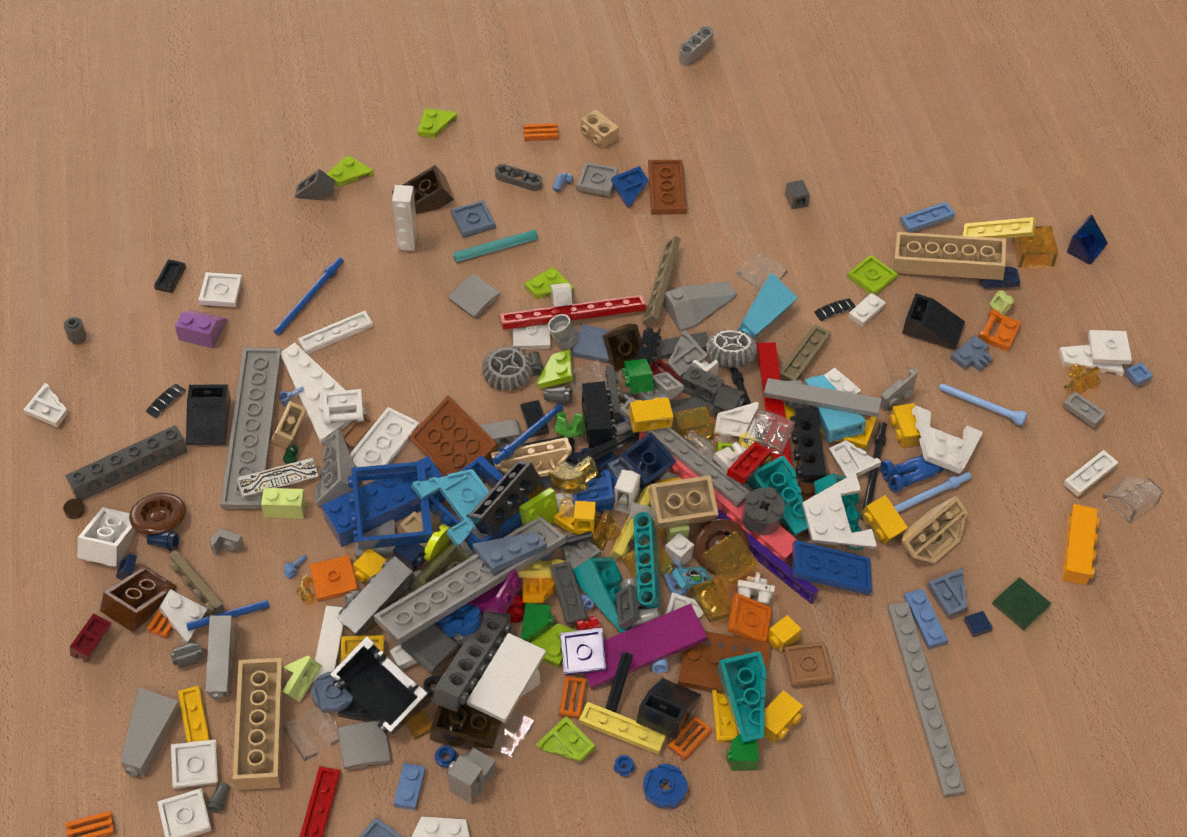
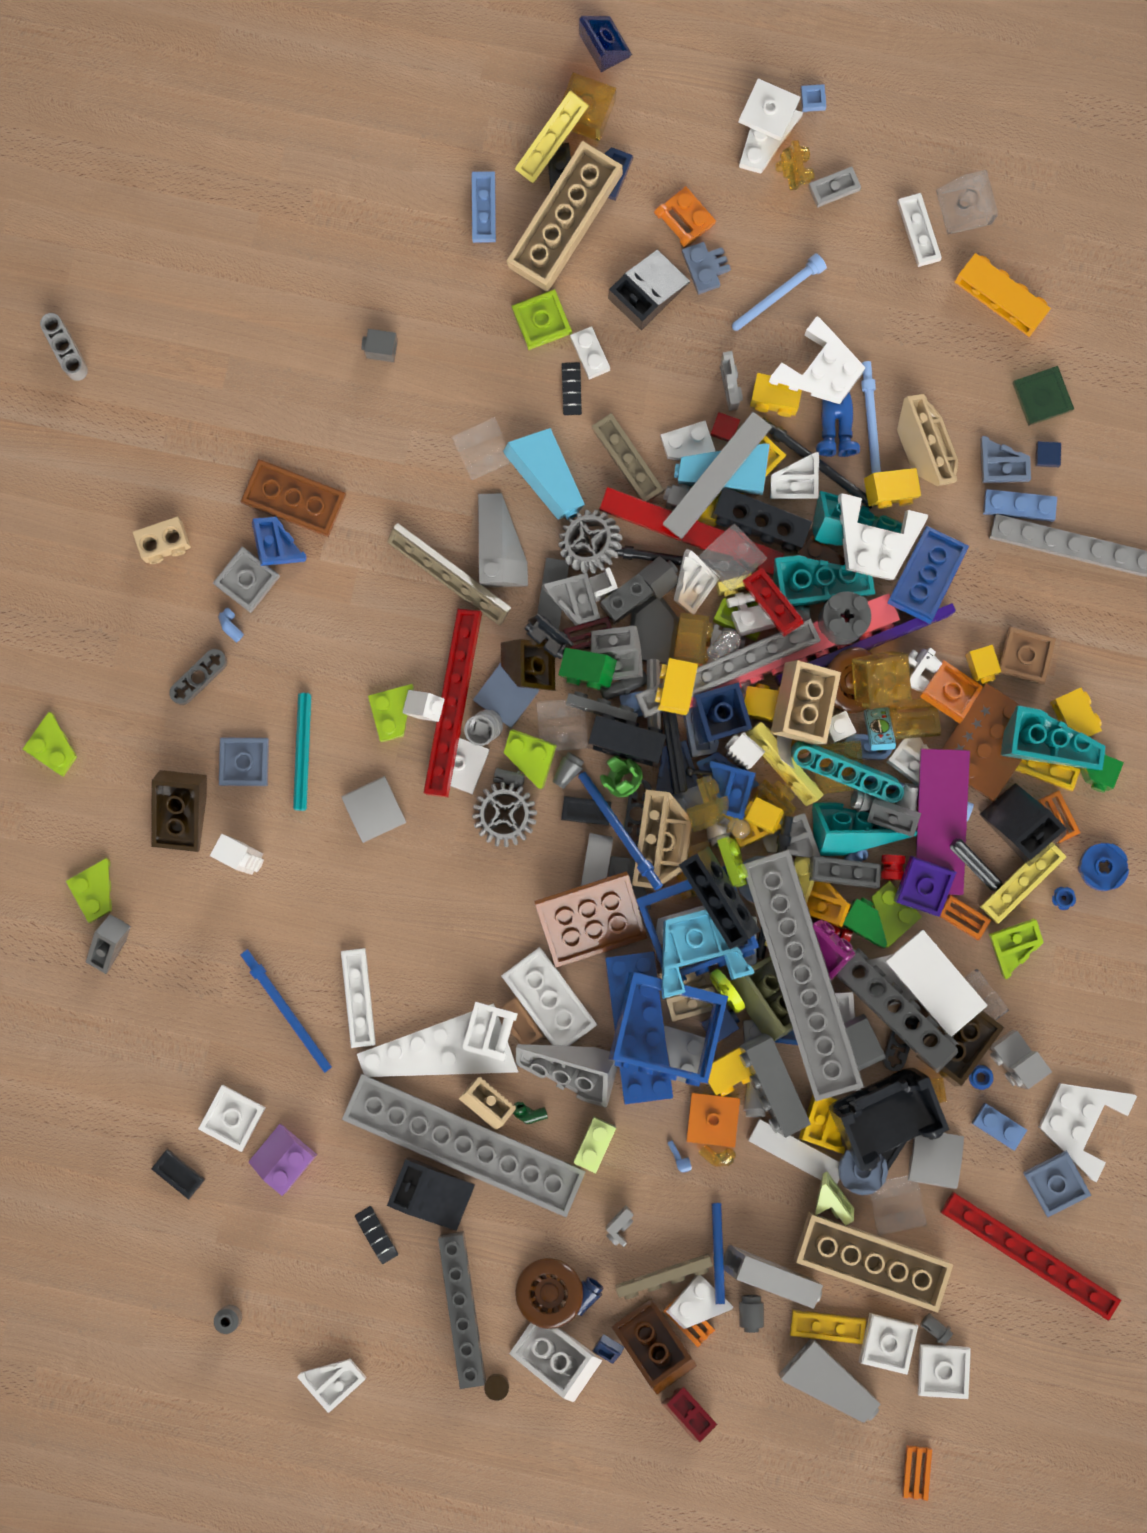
camera: 65 degrees left, 30 degrees up
(277, 477) = (558, 1141): white tile -> none
(285, 396) = (436, 1084): medium blue hand -> none
(463, 621) = (855, 998): blue plate -> none
(507, 551) = (786, 920): sand blue wing -> none
(540, 131) = (121, 611): orange tile -> none
(723, 437) = (710, 607): clear tile -> none
(1002, 302) = (651, 192): yellowish green tile -> none

